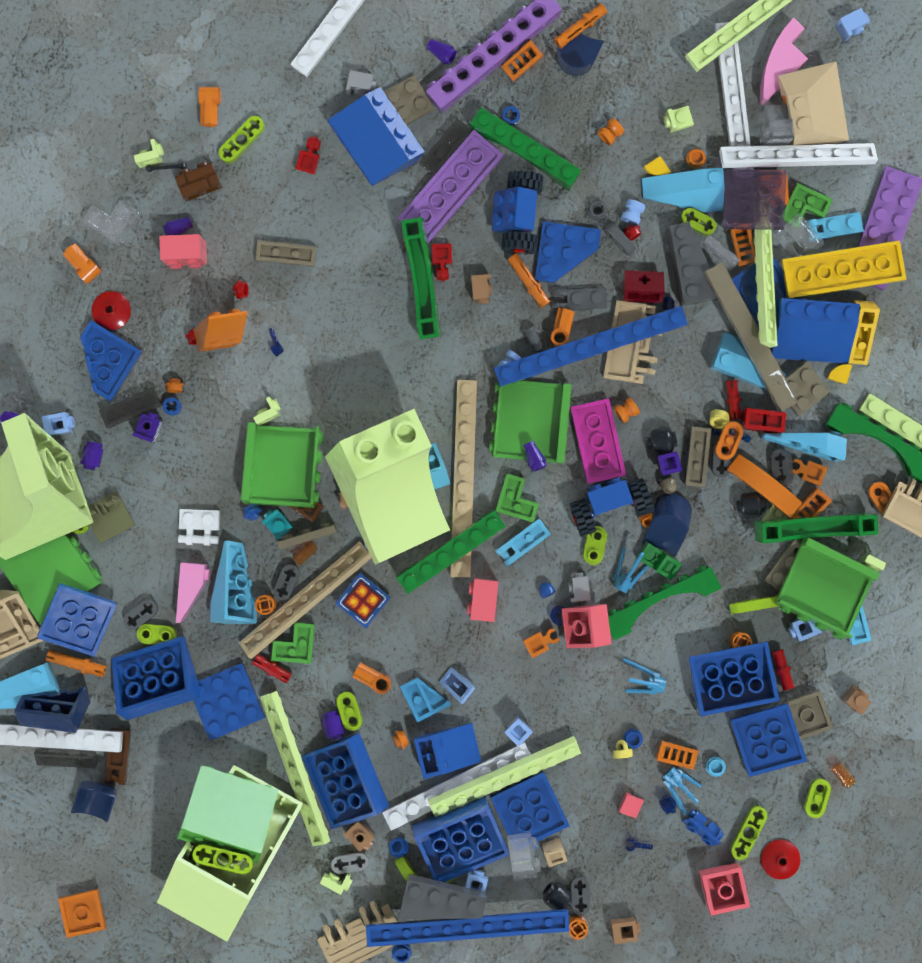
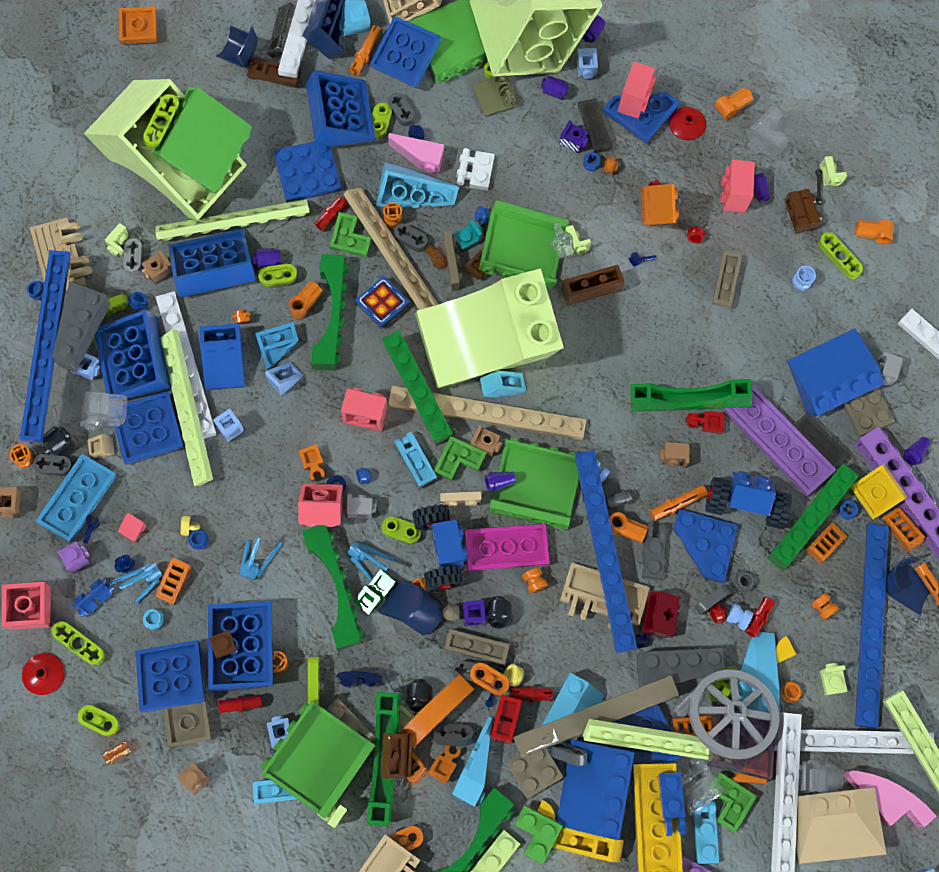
camera: 90 degrees right, 15 degrees down
(90, 367) = (637, 90): none -> coral brick
(168, 594) = (416, 132): none -> clear blue plate
(274, 171) = (807, 275): none -> light blue wheel
(274, 425) = (562, 242): none -> clear piece
(309, 161) = (816, 311): red plate -> none
(315, 389) = (592, 285): none -> reddish brown brick
(336, 655) = (325, 353): none -> green arch
(489, 480) = (478, 441): none -> medium nougat brick
(492, 86) = (878, 491): none -> yellow plate
(542, 139) = (818, 555): none -> orange slope
(559, 499) = (468, 498): none -> tan plate
(610, 864) = (76, 498): none -> dark azure plate
(619, 85) = (872, 626): none -> blue plate
(629, 192) = (759, 617): none -> red pin
(669, 853) = (75, 557): none -> medium lavender brick
(733, 214) = (731, 716): none -> light grey wheel
(737, 694) = (223, 644): none -> reddish brown plate
(744, 570) = (352, 678): none -> clear blue slope
(788, 357) = (569, 754): none -> dark grey beam
(814, 516) = (397, 755): none -> reddish brown plate
(817, 259) = (672, 801): none -> blue hinge
(855, 374) = (544, 832): none -> bright green plate

